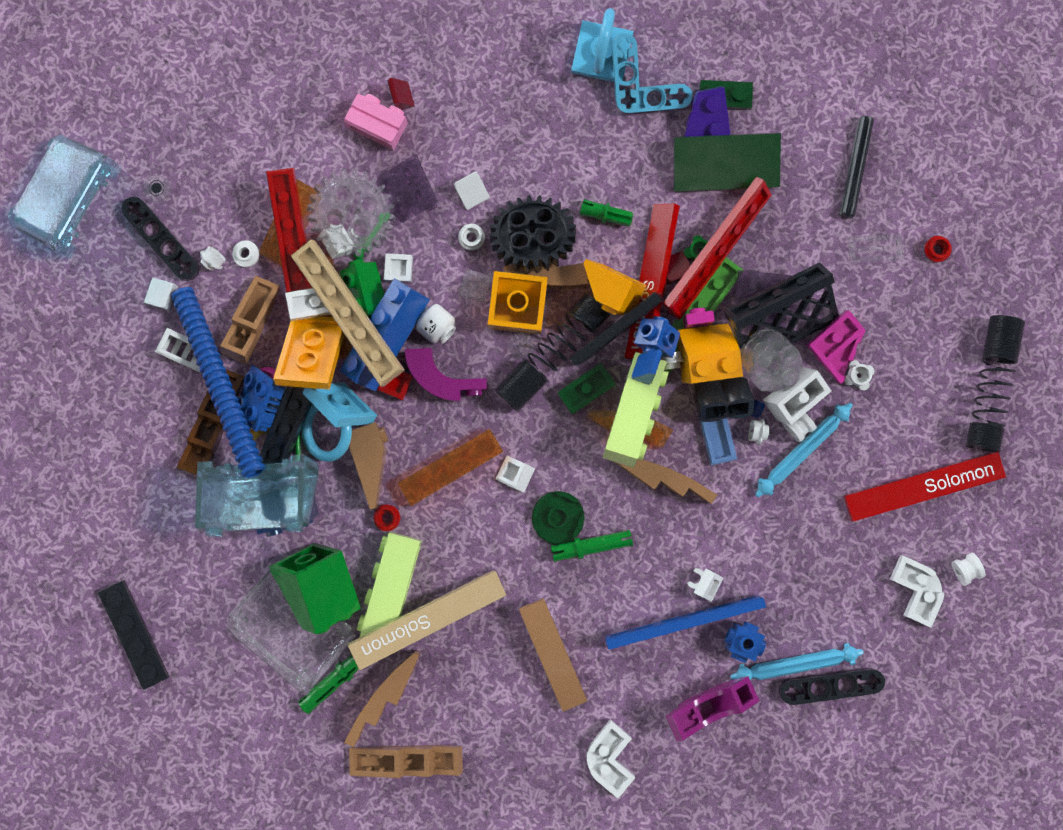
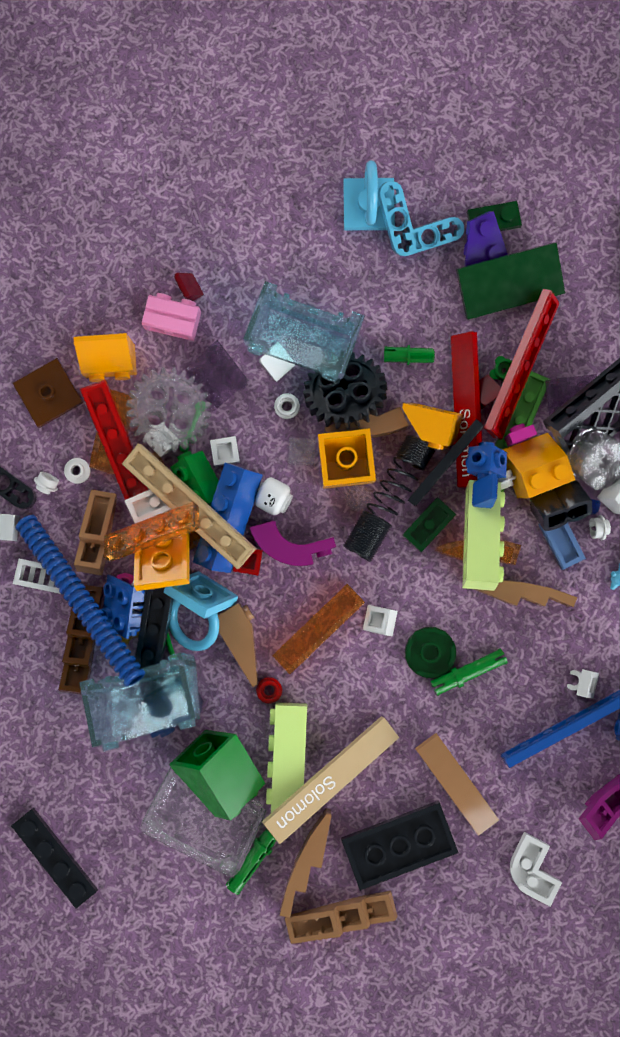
camera: 15 degrees left, 0 degrees up
(234, 169) = (47, 393): none -> reddish brown plate
(300, 145) = (106, 356): none -> light orange slope
(304, 330) = (151, 531): none -> clear orange plate
(481, 702) = (399, 845): none -> black plate
(502, 167) = (302, 334): none -> clear light blue windscreen

